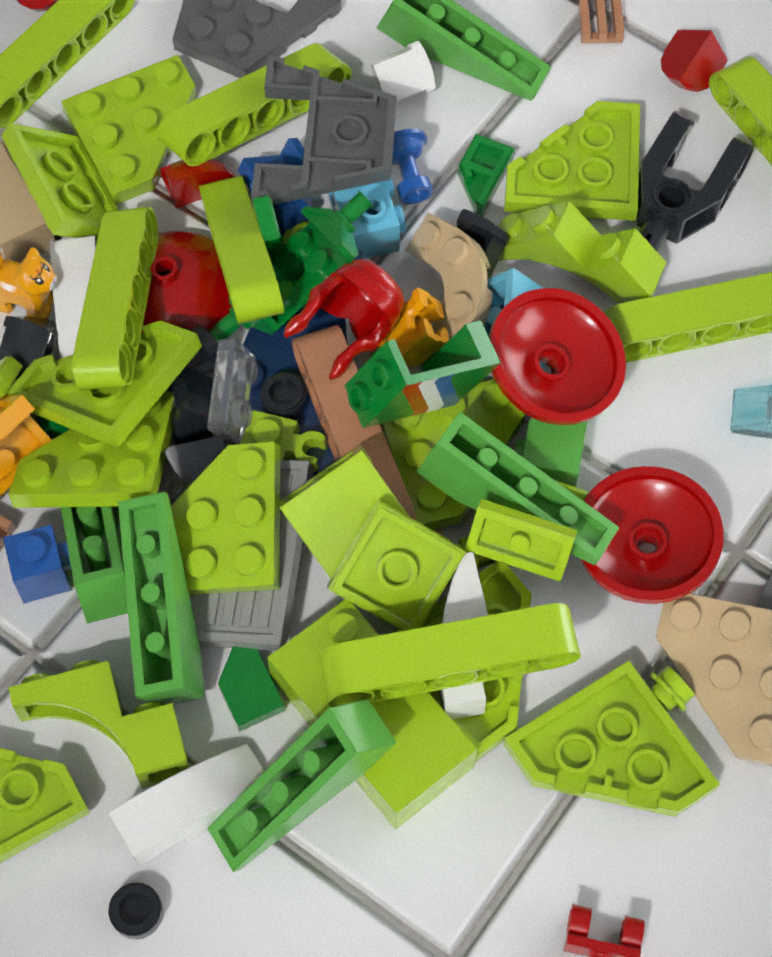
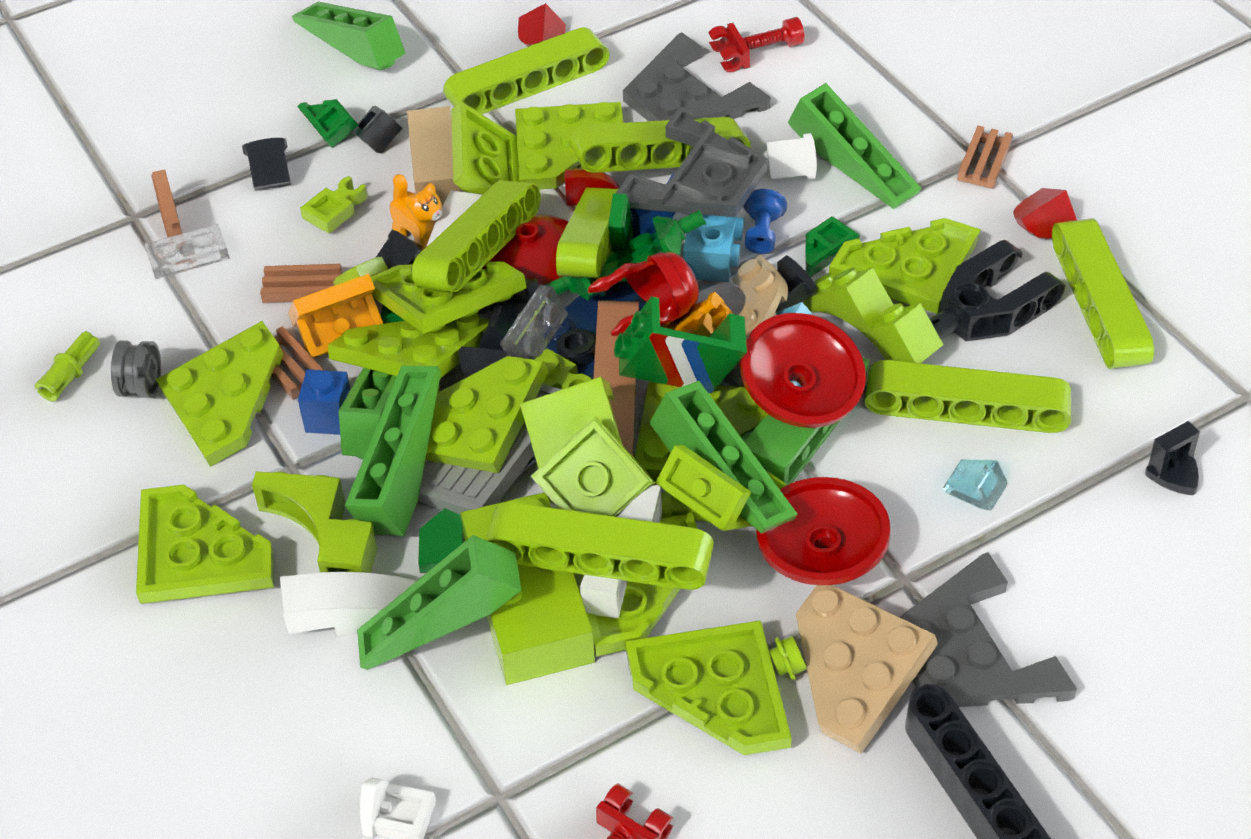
camera: 25 degrees right, 15 degrees down
(135, 910) = (270, 667): black tile -> none

